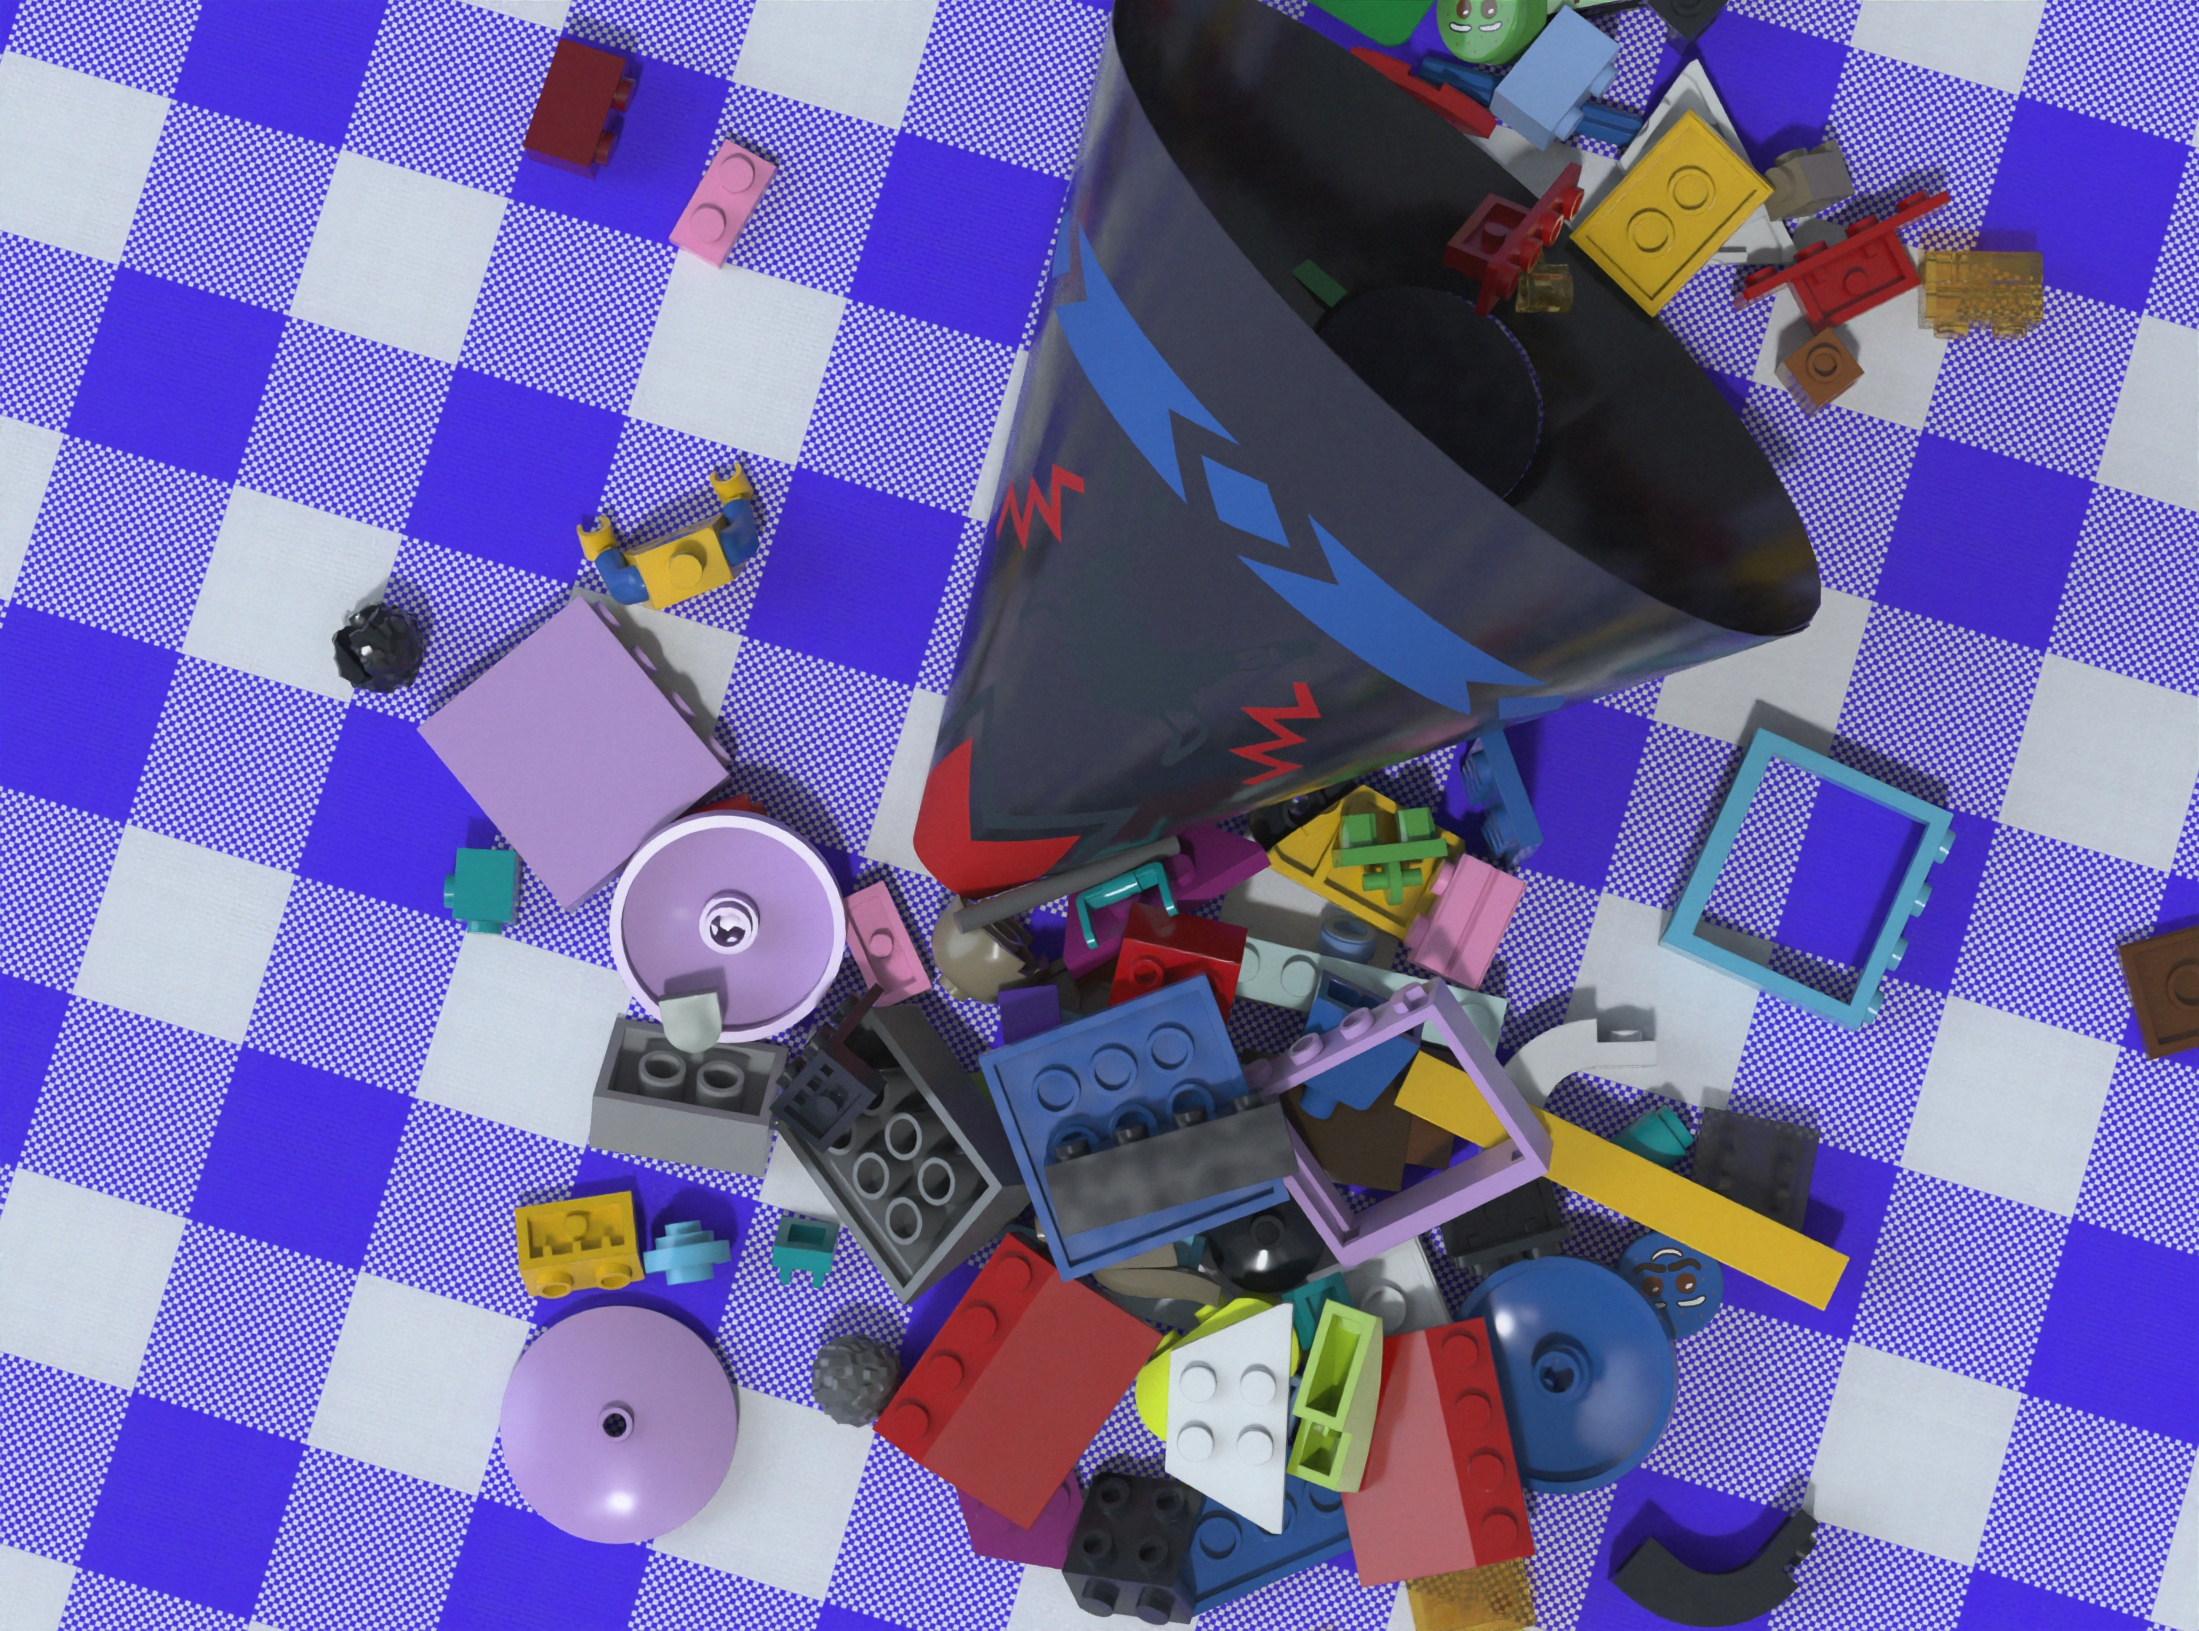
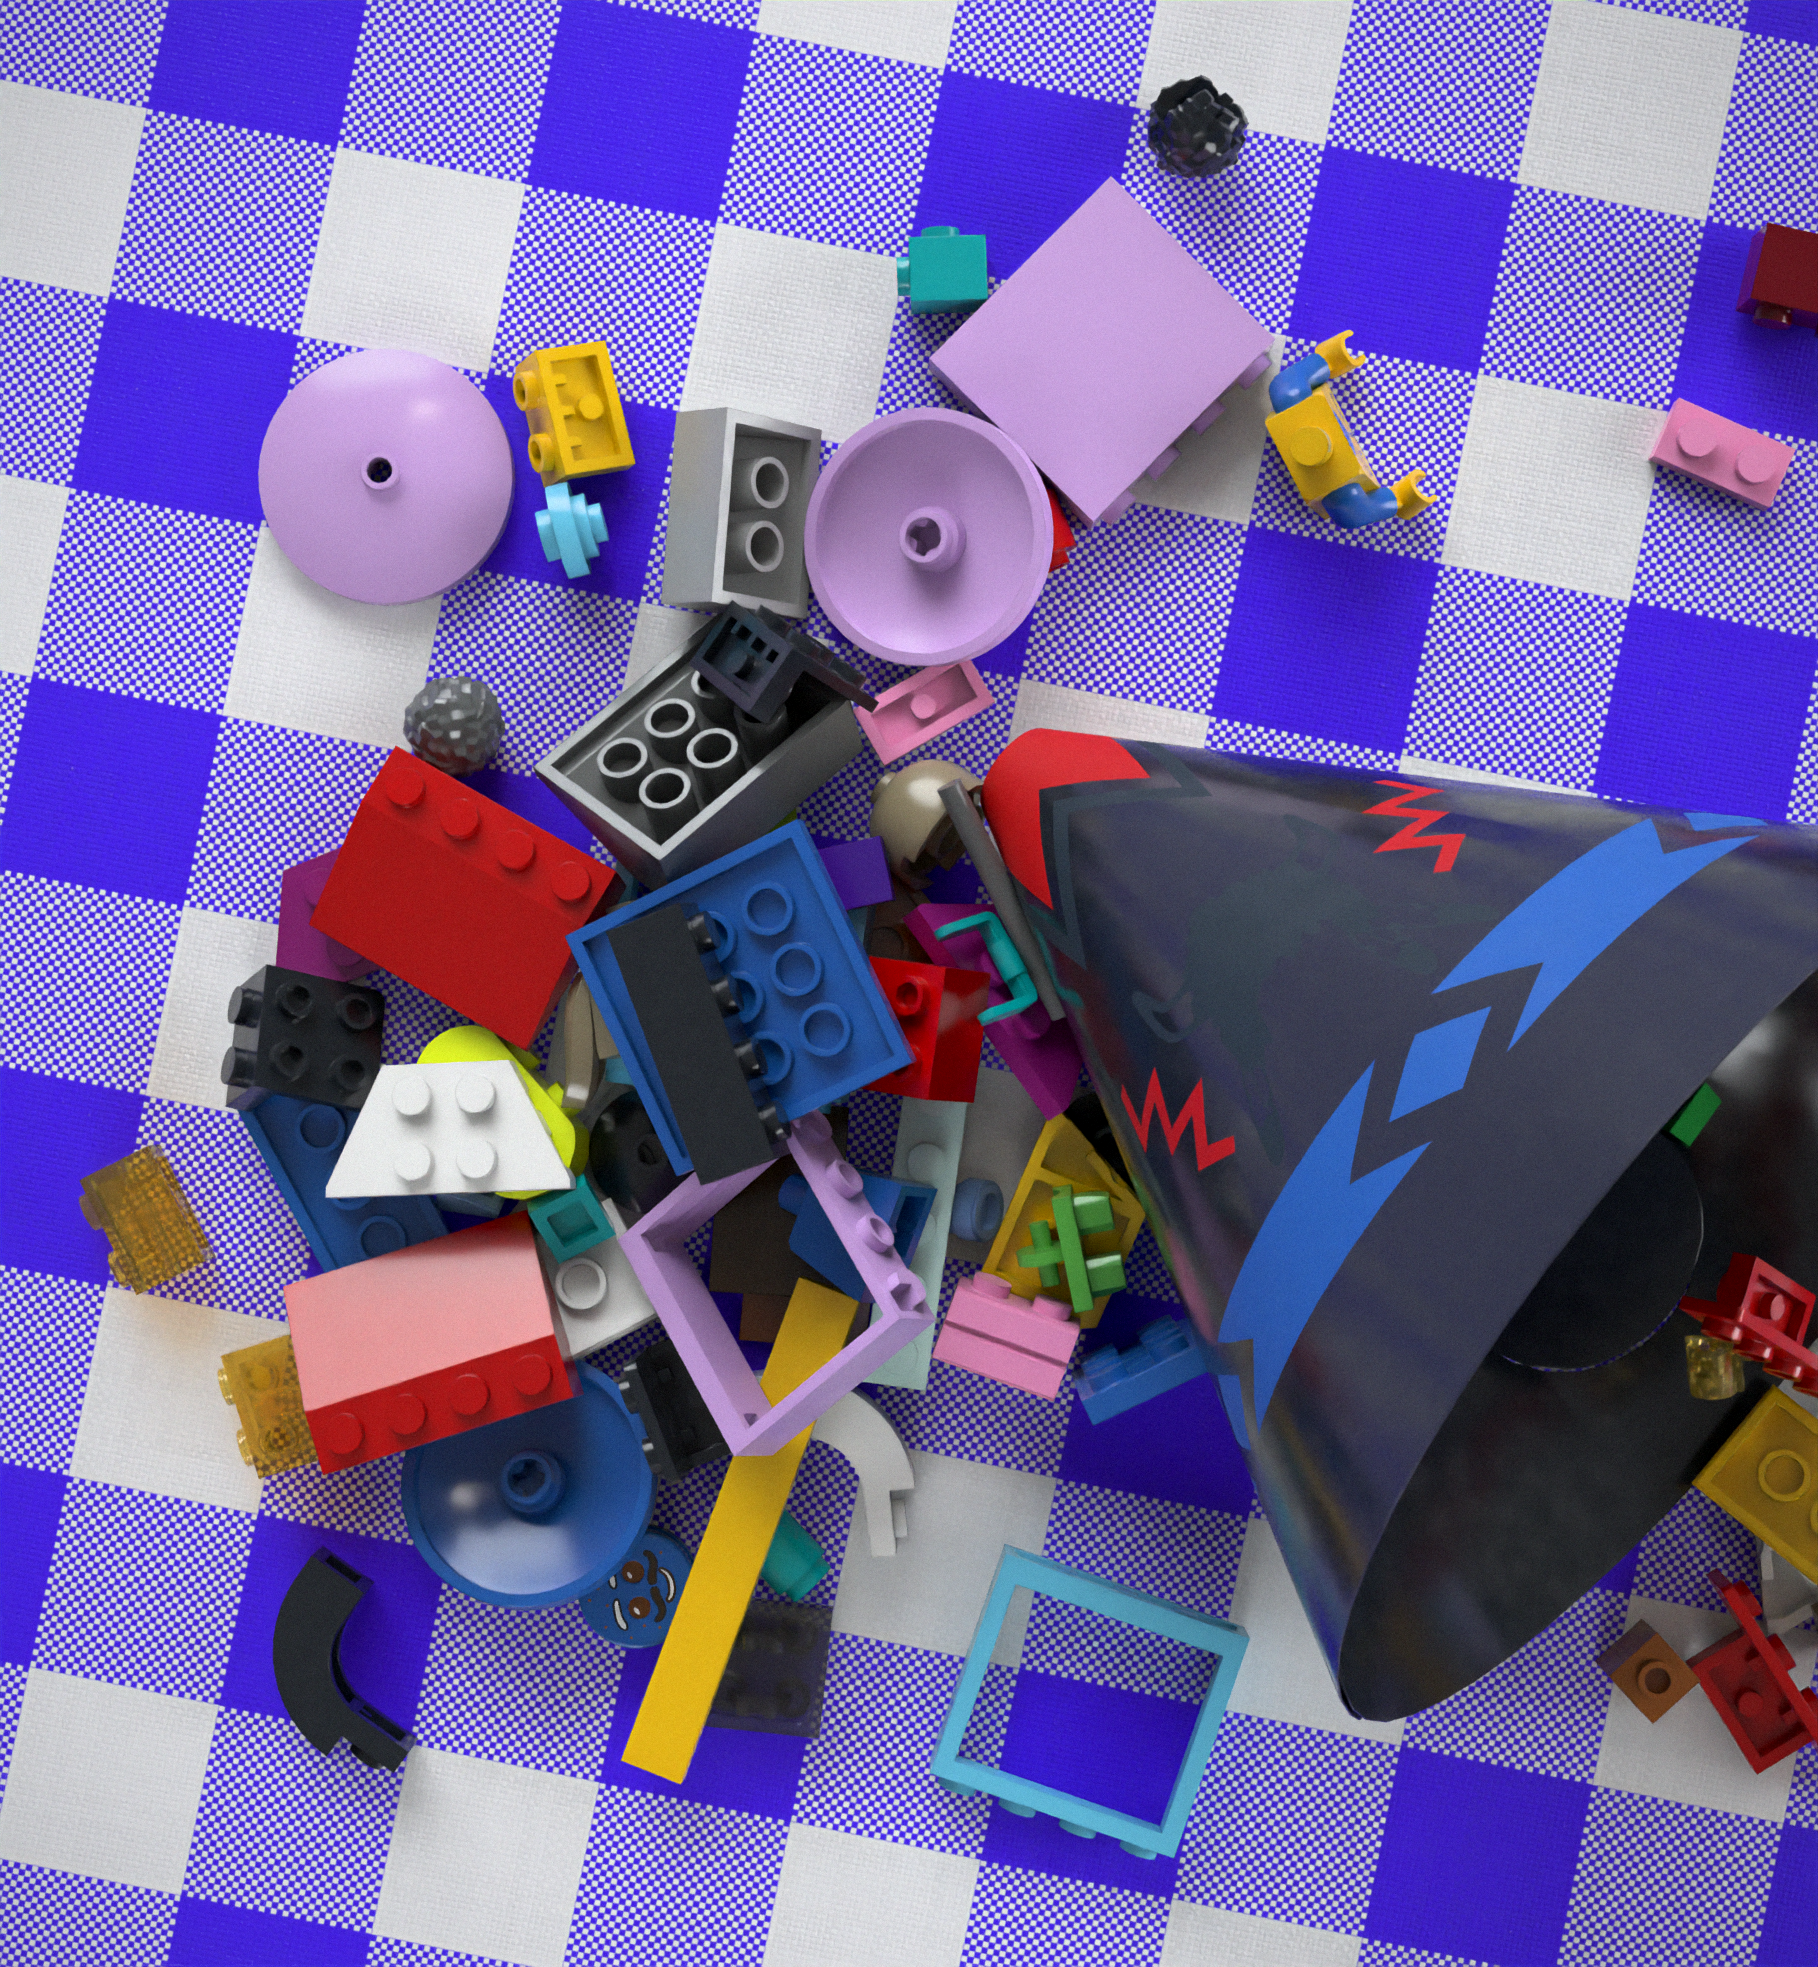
camera: 80 degrees right, 5 degrees up
(692, 1018) = (824, 509): tile -> none
(806, 1247) = (591, 656): teal tile -> none
(1338, 1399) = (473, 1246): lime slope -> none
(1980, 293) = (1752, 1840): clear yellow brick -> none

